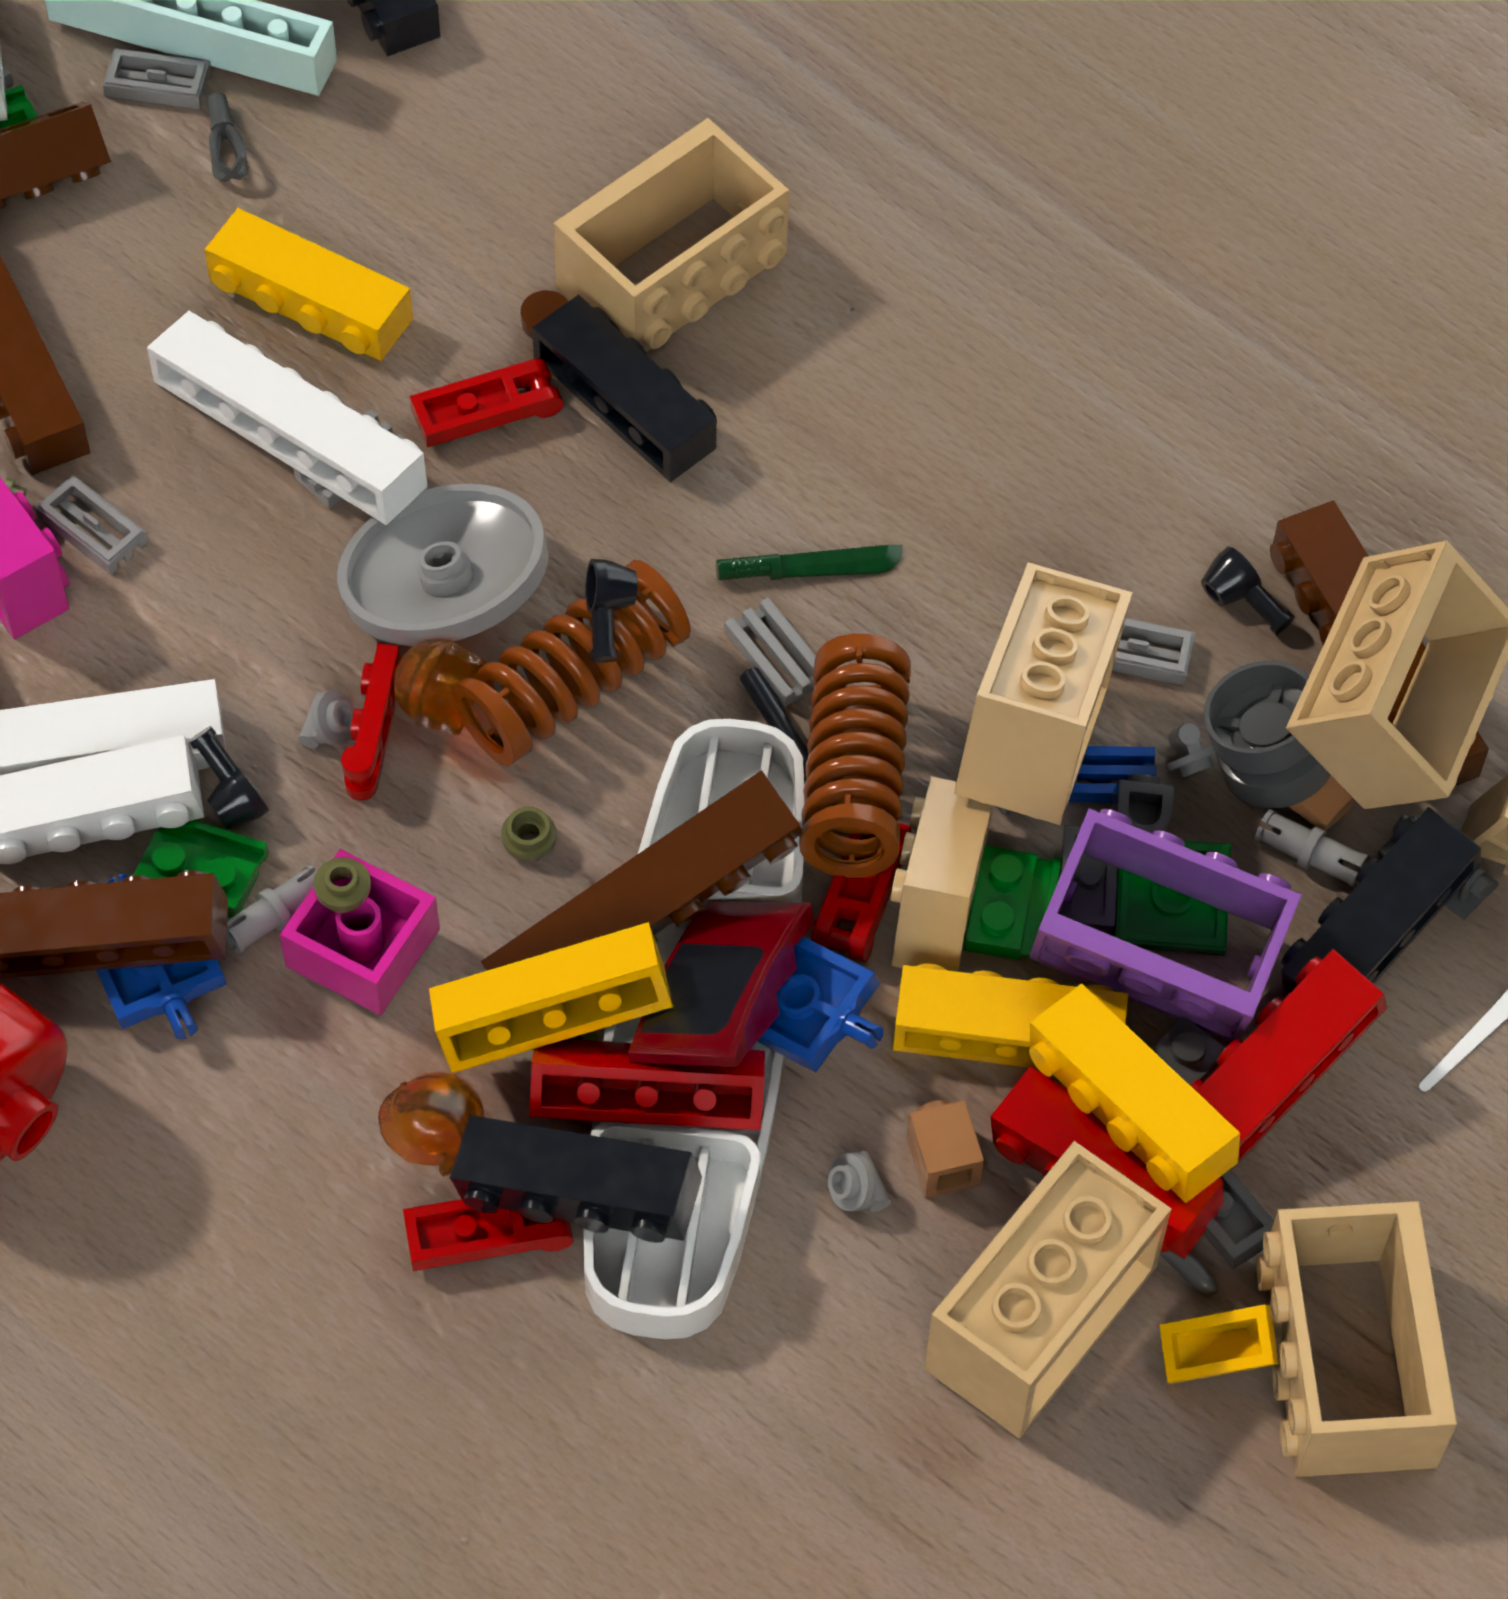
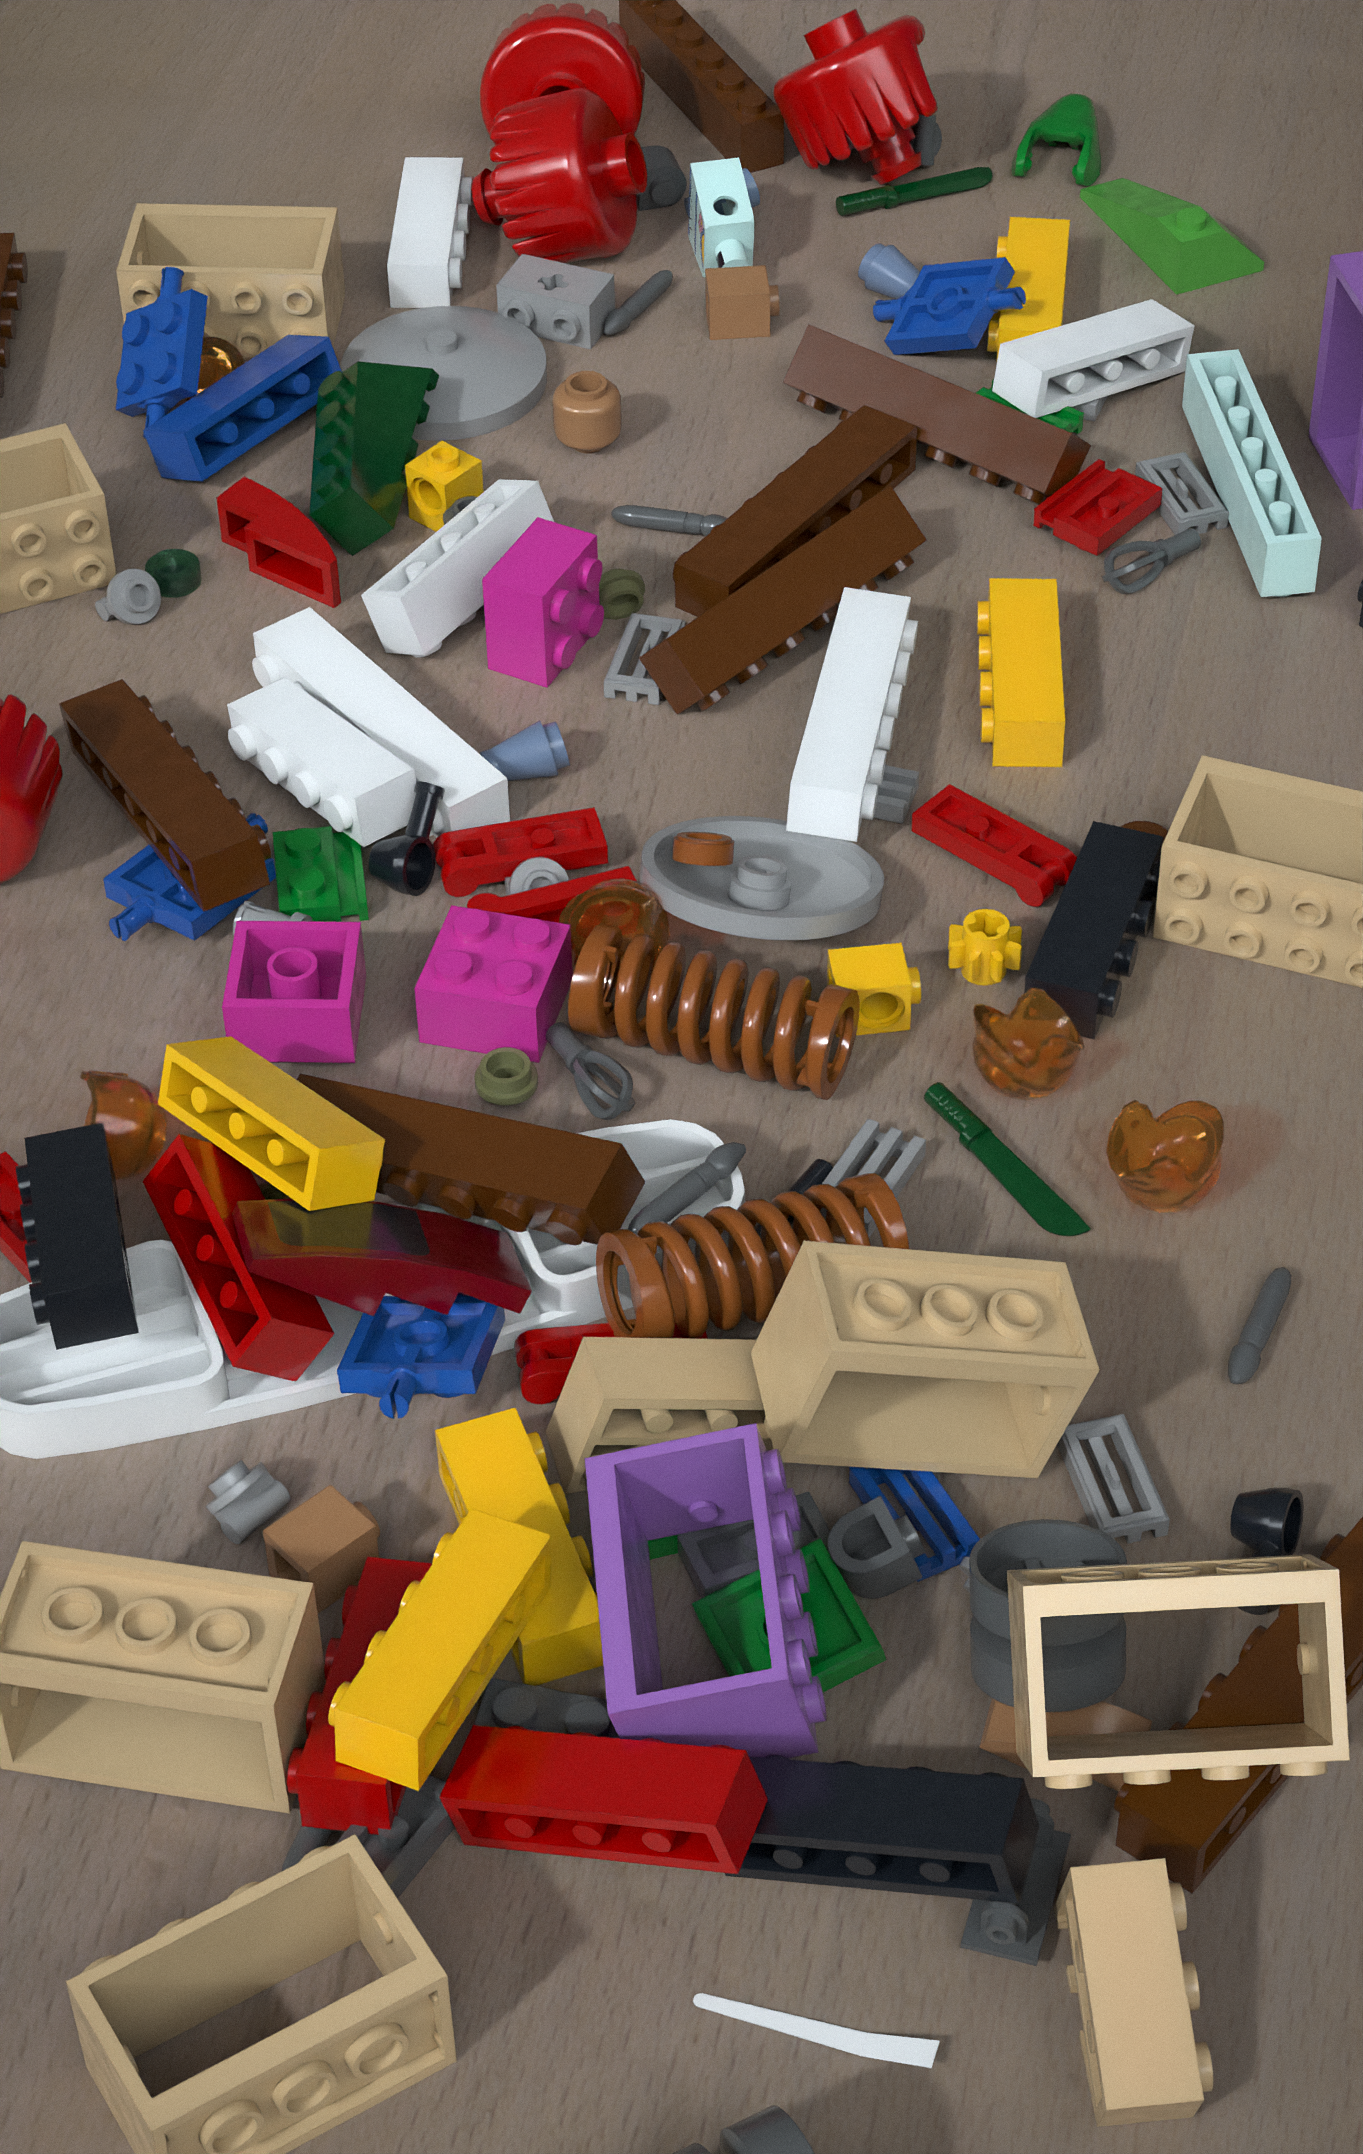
camera: 65 degrees right, 15 degrees down
(117, 395) = (781, 601): none -> reddish brown brick
(142, 137) = (1098, 507): none -> red plate
(166, 651) = (530, 753): none -> sand blue cone
(277, 709) = (495, 850): none -> red plate
(347, 897) = (309, 931): olive plate -> none
(405, 584) = (703, 849): none -> dark orange tile
(432, 793) = (493, 982): none -> dark pink brick
(545, 774) = (581, 1060): none -> dark grey piece
(594, 538) = (882, 982): none -> yellow brick
(599, 463) = (985, 947): none -> yellow gear
(607, 590) = (774, 958): black bar -> none
(730, 488) = (1028, 1049): none -> clear orange helmet
(752, 732) = (693, 1185): none -> dark grey piece
(893, 457) = (1169, 1158): none -> clear orange helmet
(1053, 494) = (1246, 1354): none -> dark grey piece
(1219, 1344) = (191, 1883): yellow slope -> none
(1311, 847) = (948, 1739): light grey pin -> none

